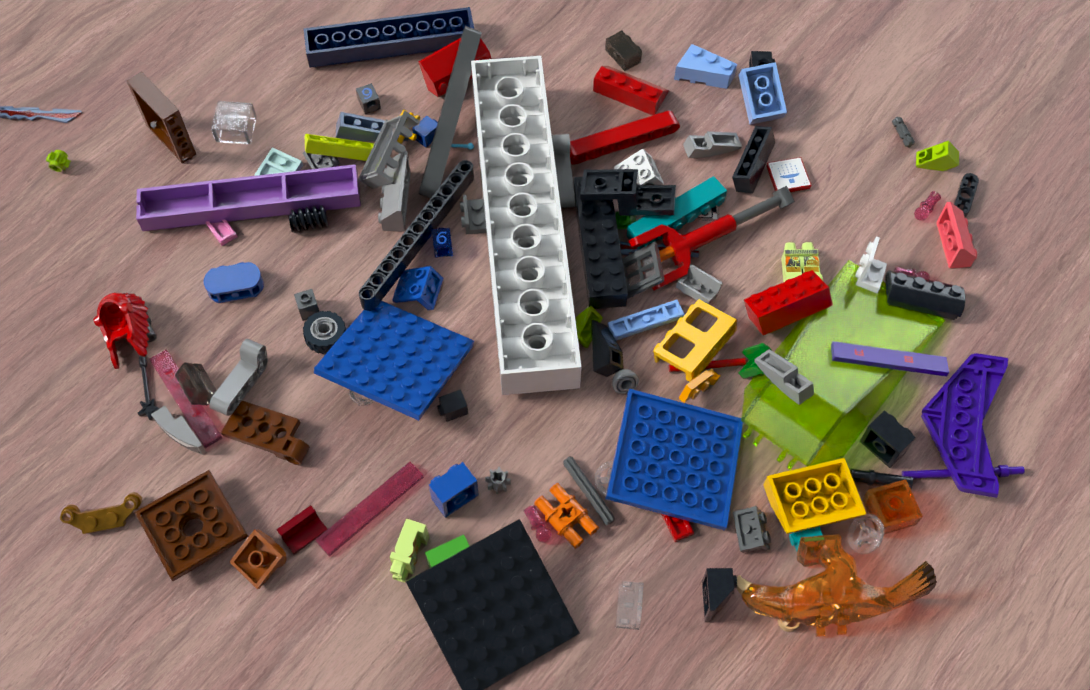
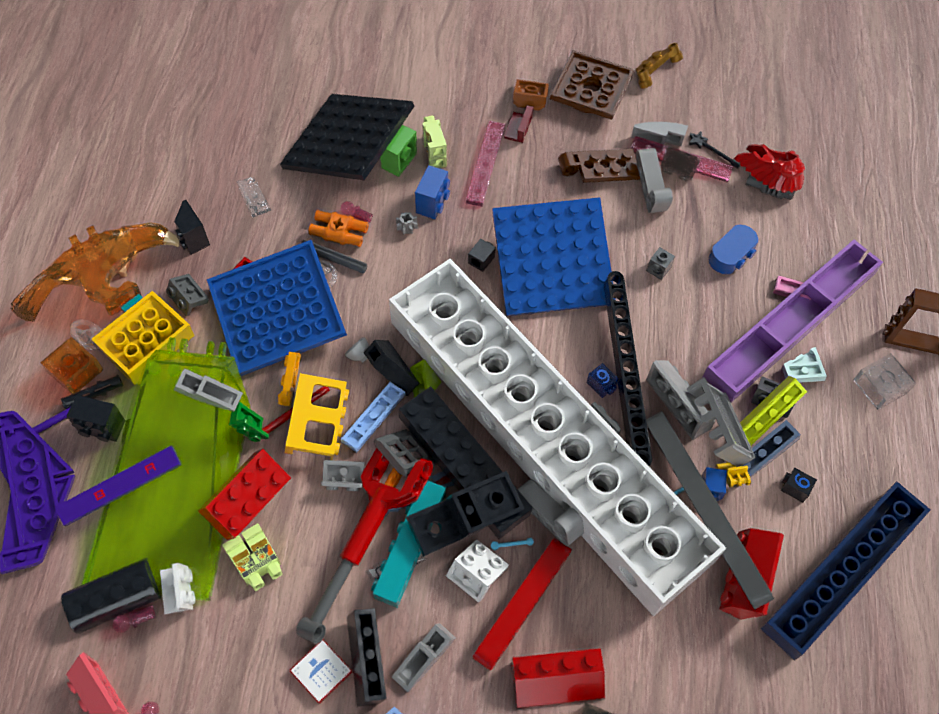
camera: 145 degrees right, 0 degrees up
(308, 218) = (730, 332): black piece -> none
(323, 322) = (628, 262): black wheel -> none
(420, 285) = (585, 329): blue bracket -> none

